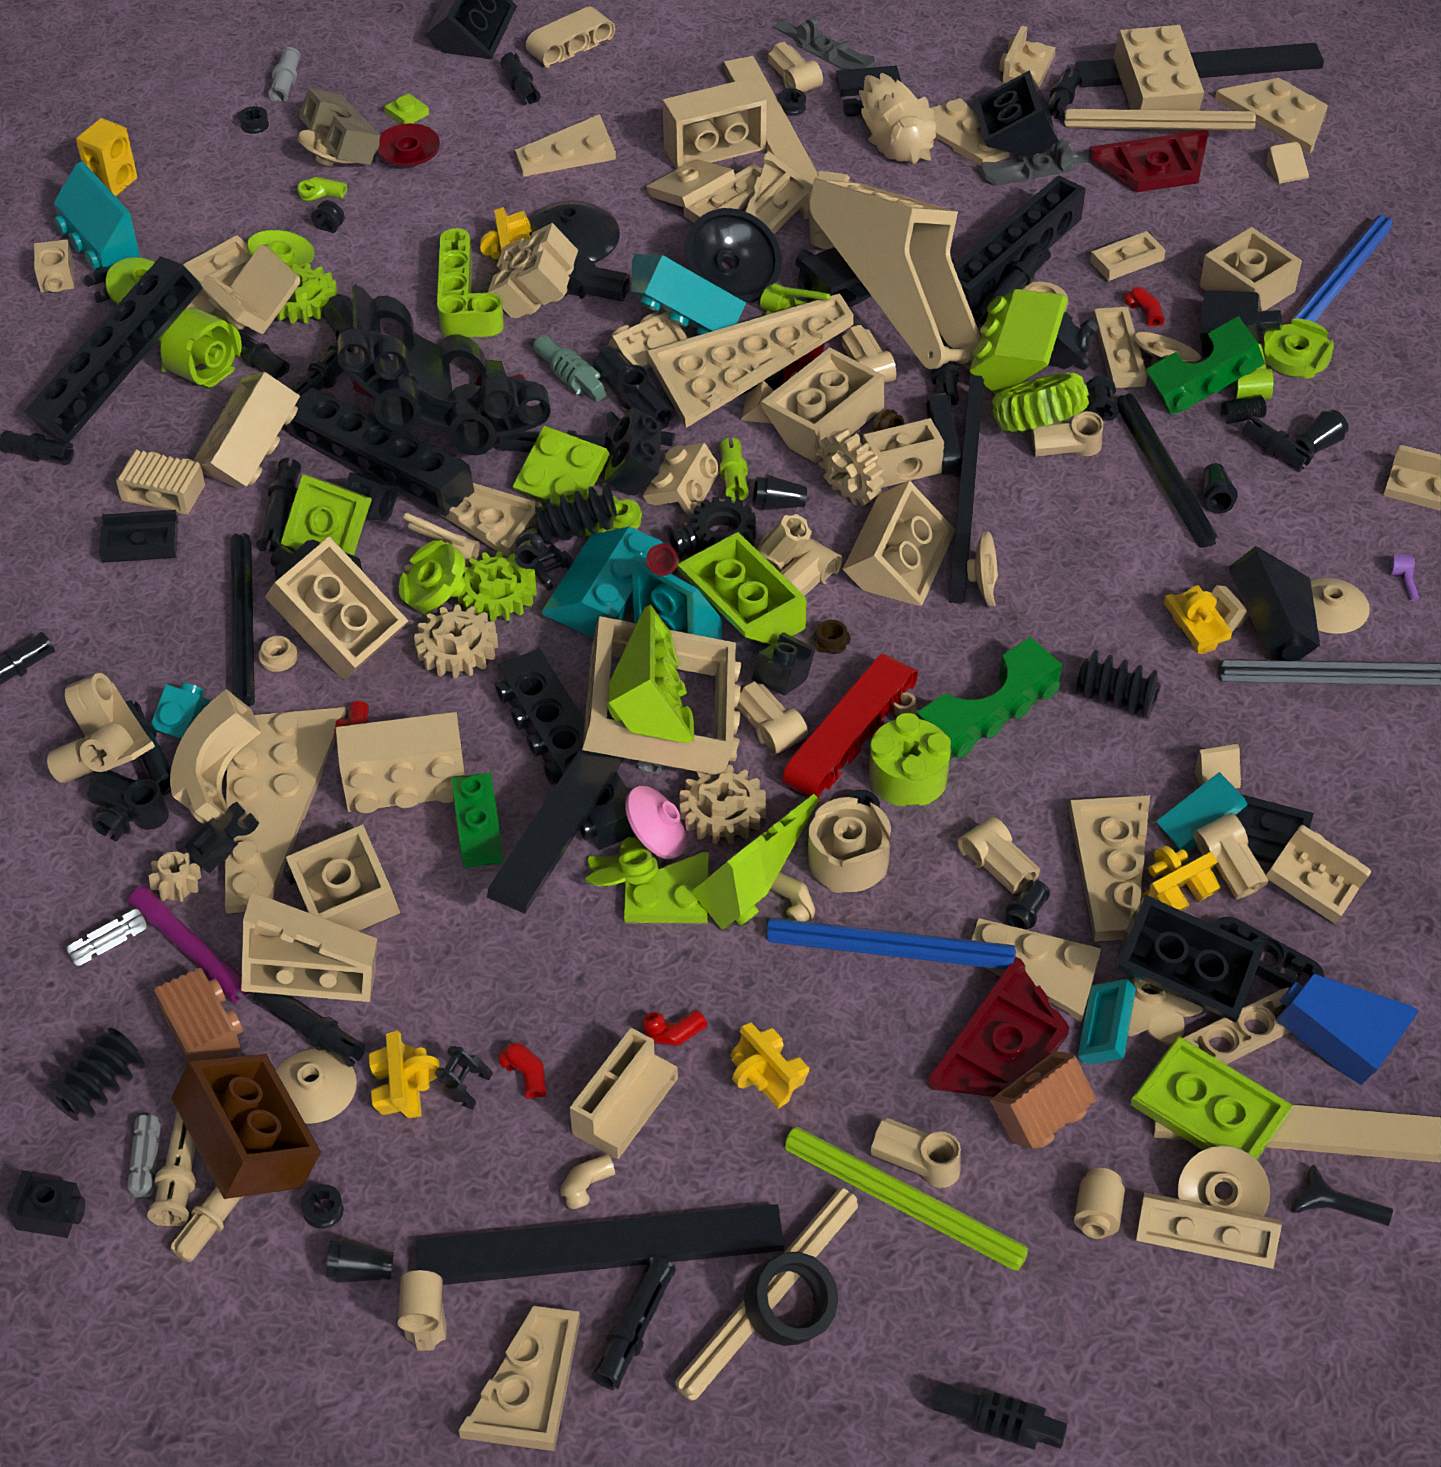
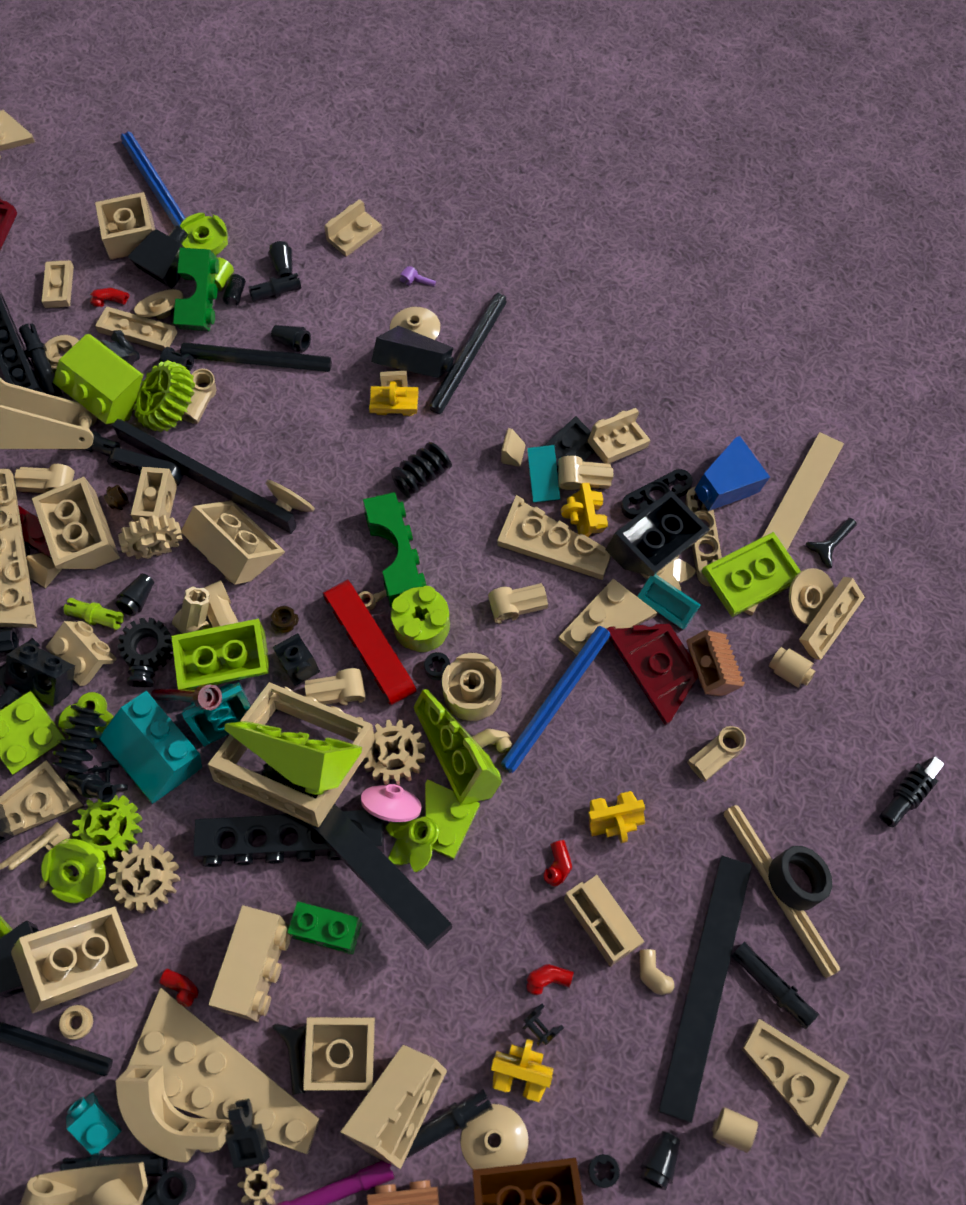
camera: 65 degrees left, 15 degrees up
(906, 1198) = (741, 777): lime axle -> none
(1027, 905) = (566, 609): black pin -> none
(1287, 162) = (38, 157): tan slope -> none

